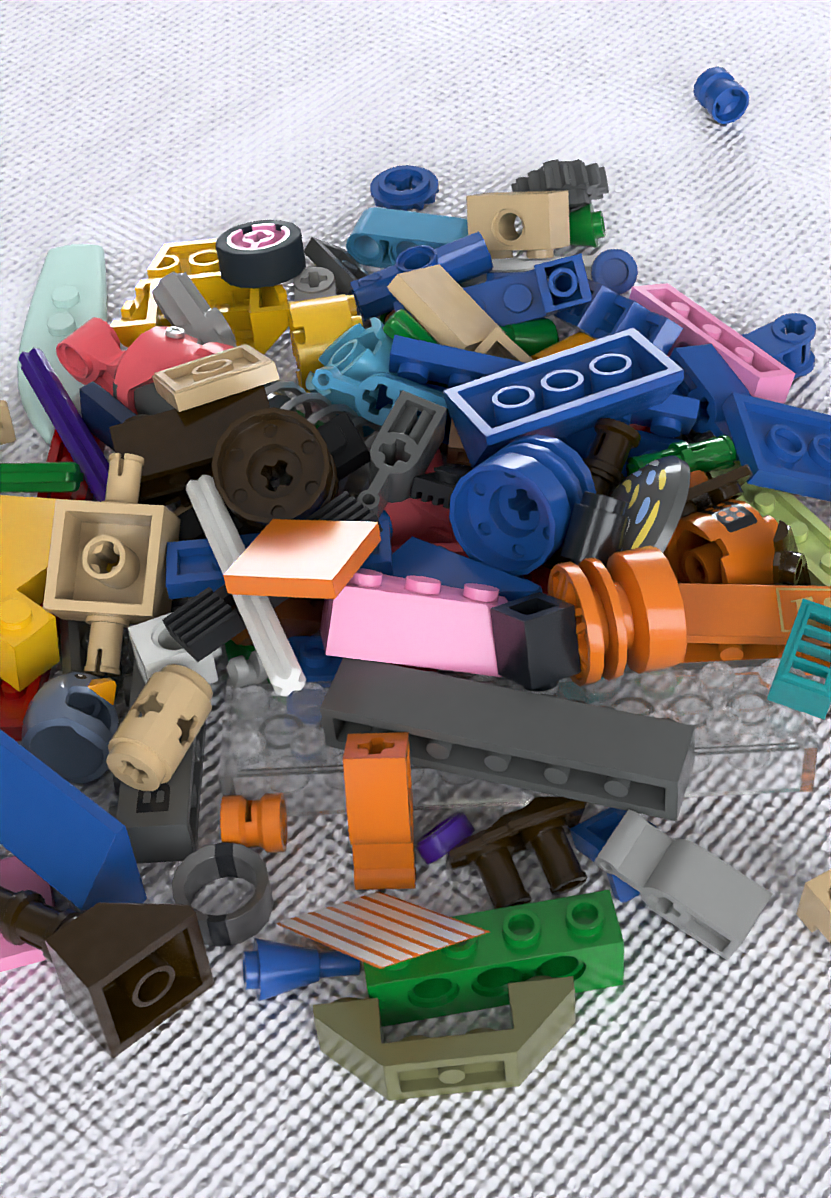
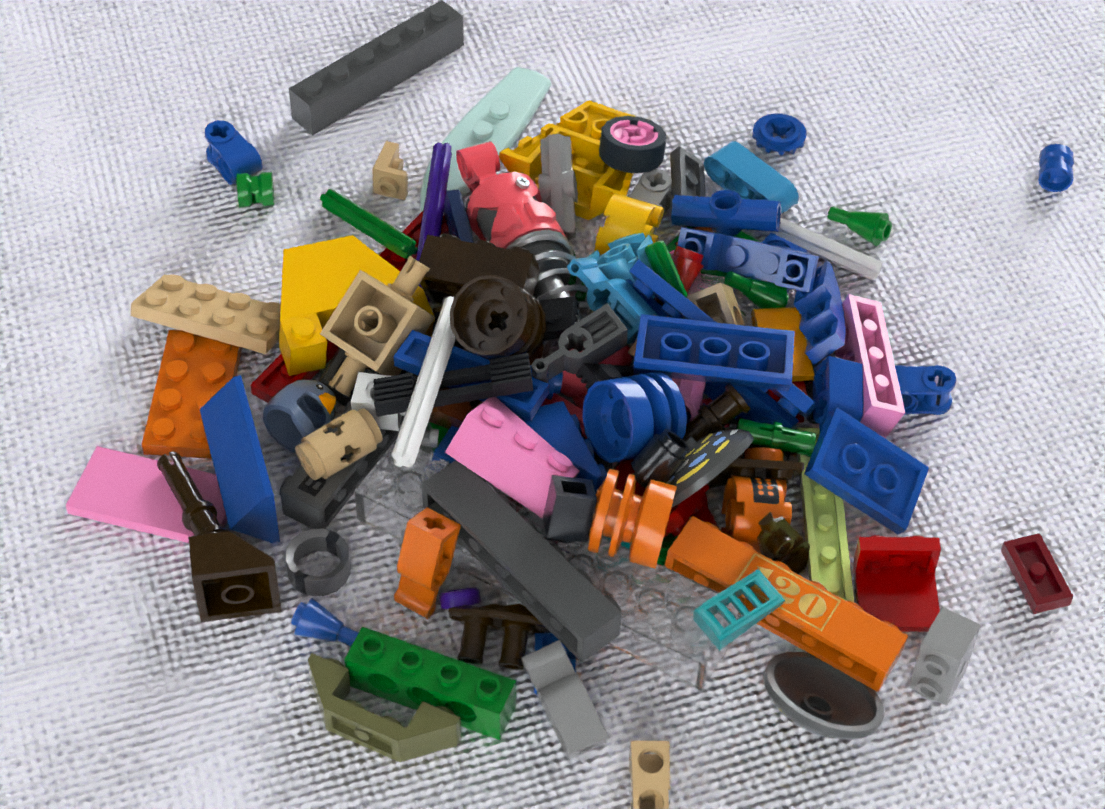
camera: 25 degrees right, 5 degrees up
(214, 377) = (512, 232): tan tile -> none
(255, 821) = (363, 529): orange wheel -> none
(302, 558) = (463, 386): tile -> none
(381, 929) = (373, 630): white sticker -> none
(442, 307) = (700, 252): tan tile -> none
(542, 216) = (820, 204): tan brick -> none
(581, 181) = (871, 190): dark grey gear -> none
(615, 270) = (863, 272): blue tile -> none

